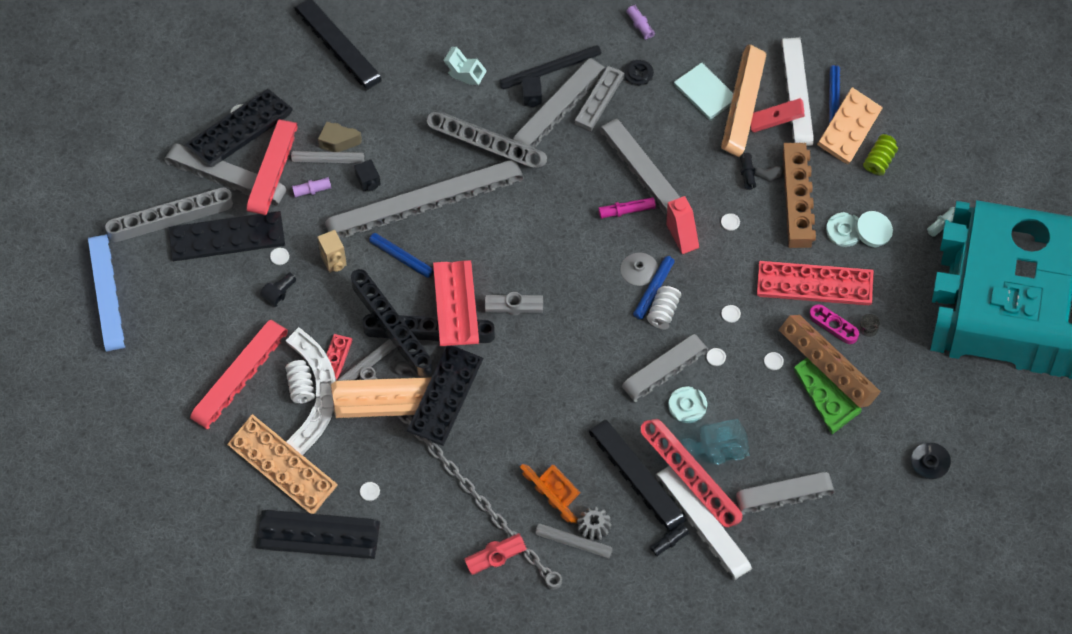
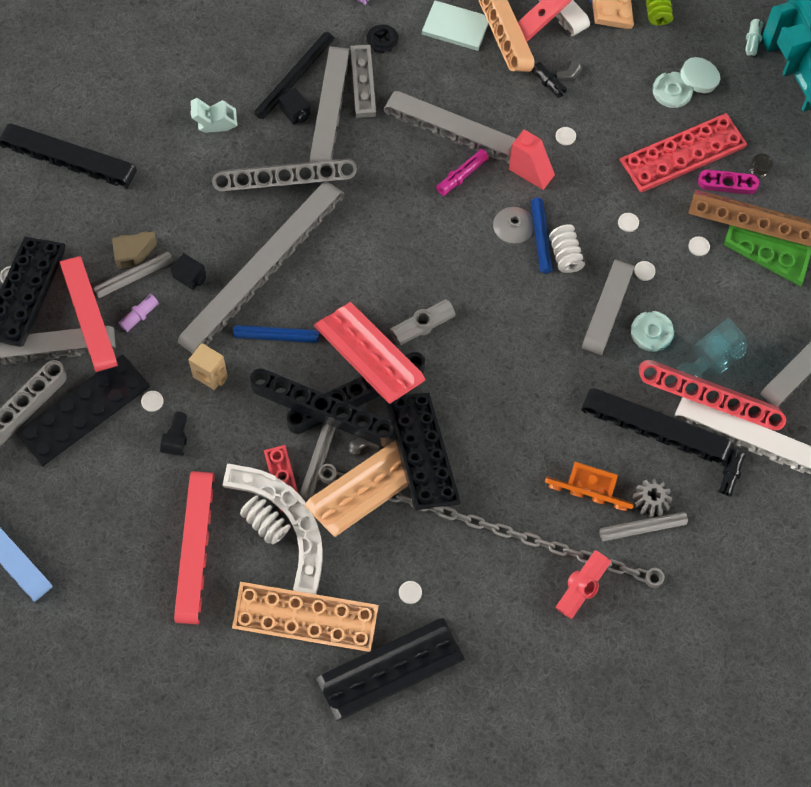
camera: 35 degrees left, 5 degrees up
(793, 154) = (601, 69): medium nougat brick -> none

